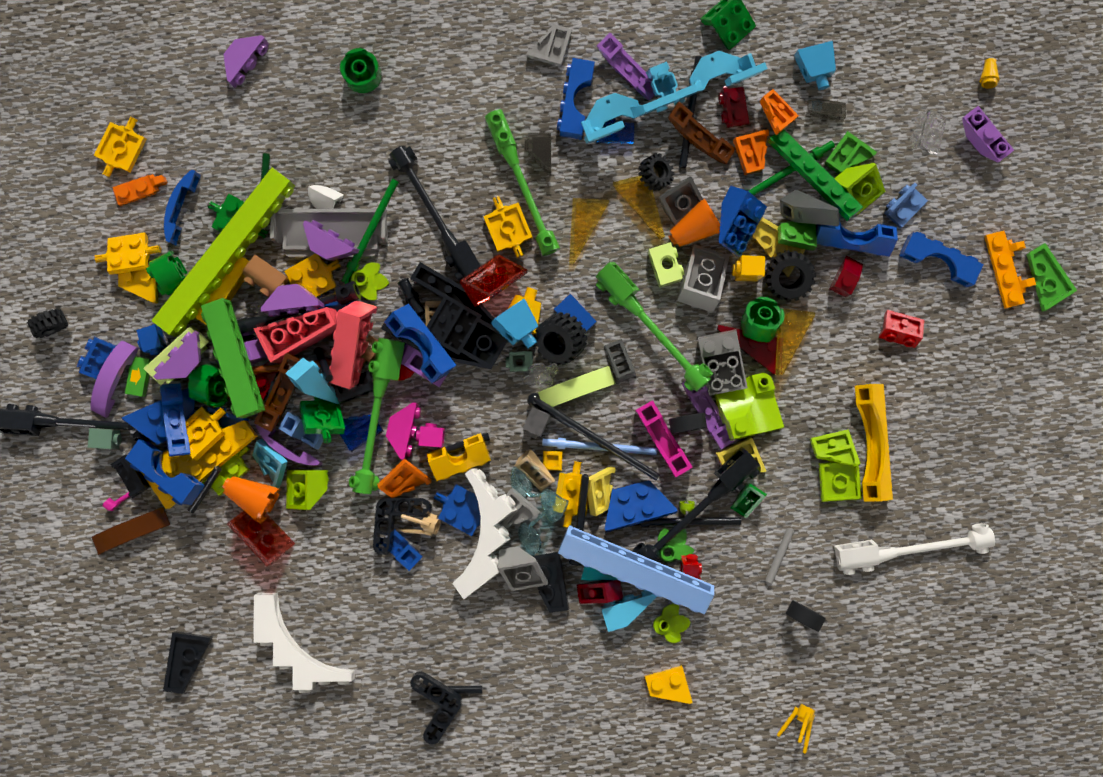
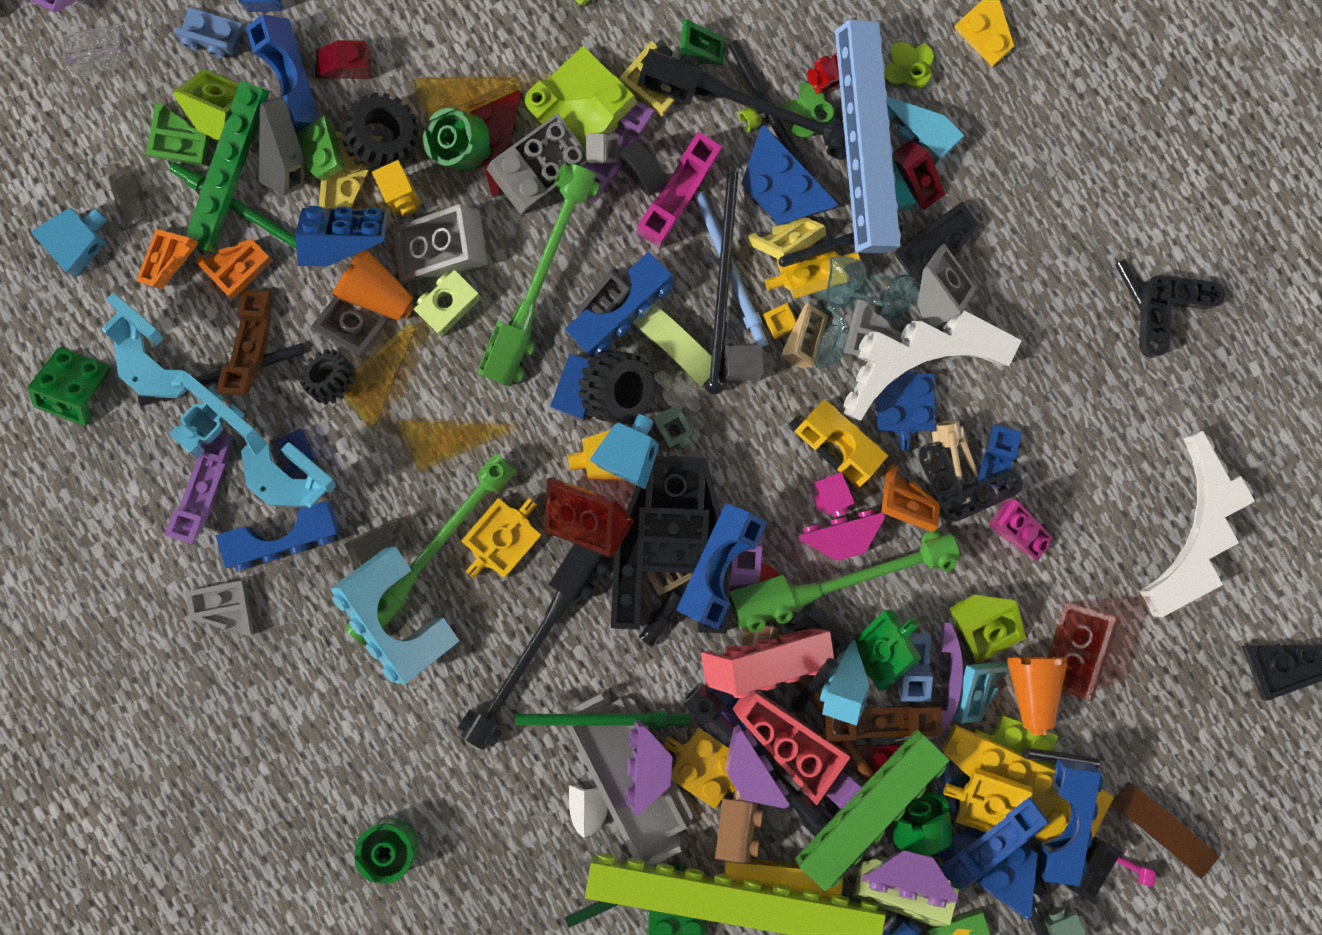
camera: 120 degrees left, 0 degrees up
(350, 538) = (1020, 529): none -> dark pink slope
(357, 431) = (876, 595): clear blue wing -> none
(372, 280) = (666, 683): lime plate -> none
(512, 124) = (360, 597): none -> medium azure arch
(615, 389) = (648, 283): none -> blue arch
(712, 405) = (602, 148): none -> light grey slope
(734, 107) = (185, 320): dark red bracket -> none

